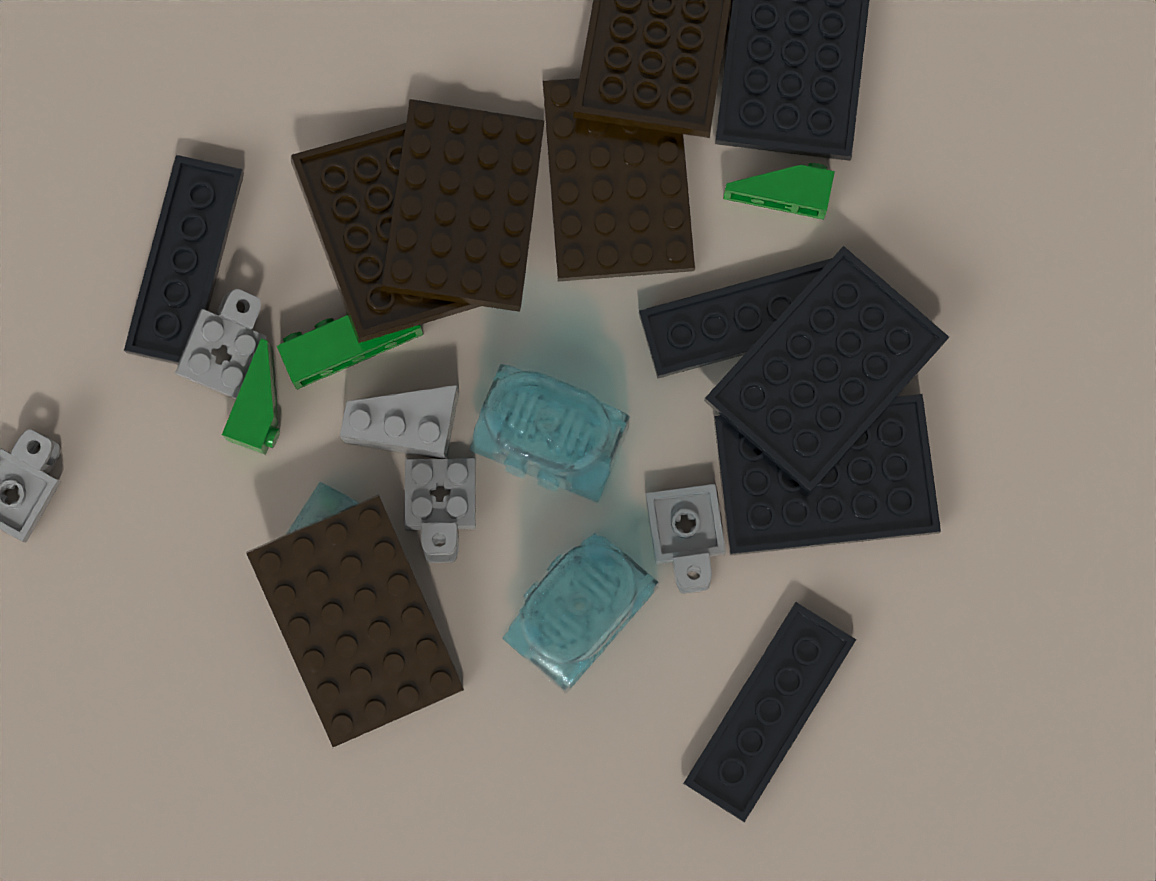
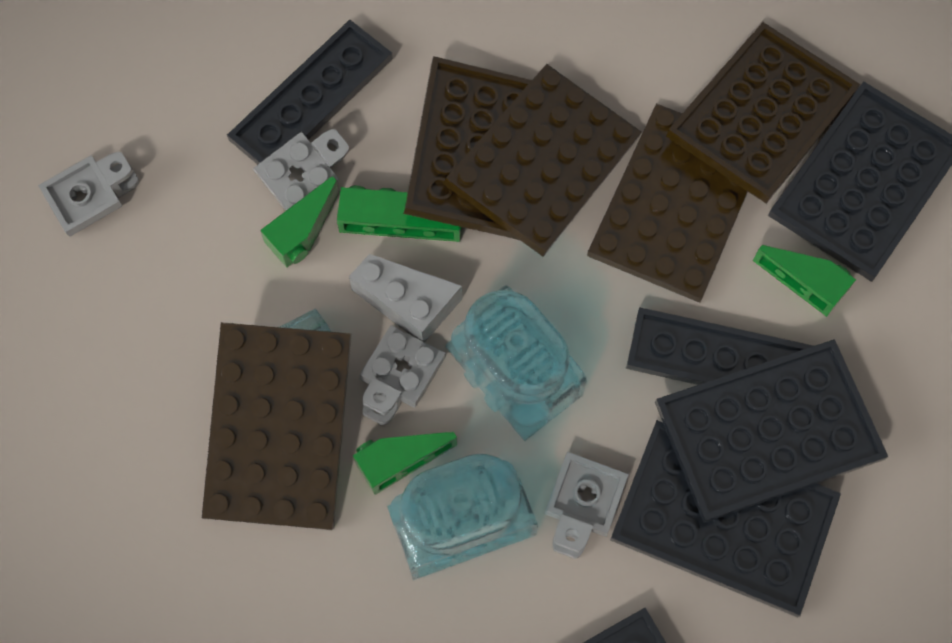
camera: 25 degrees right, 10 degrees down
(484, 589) = (396, 457): none -> green slope

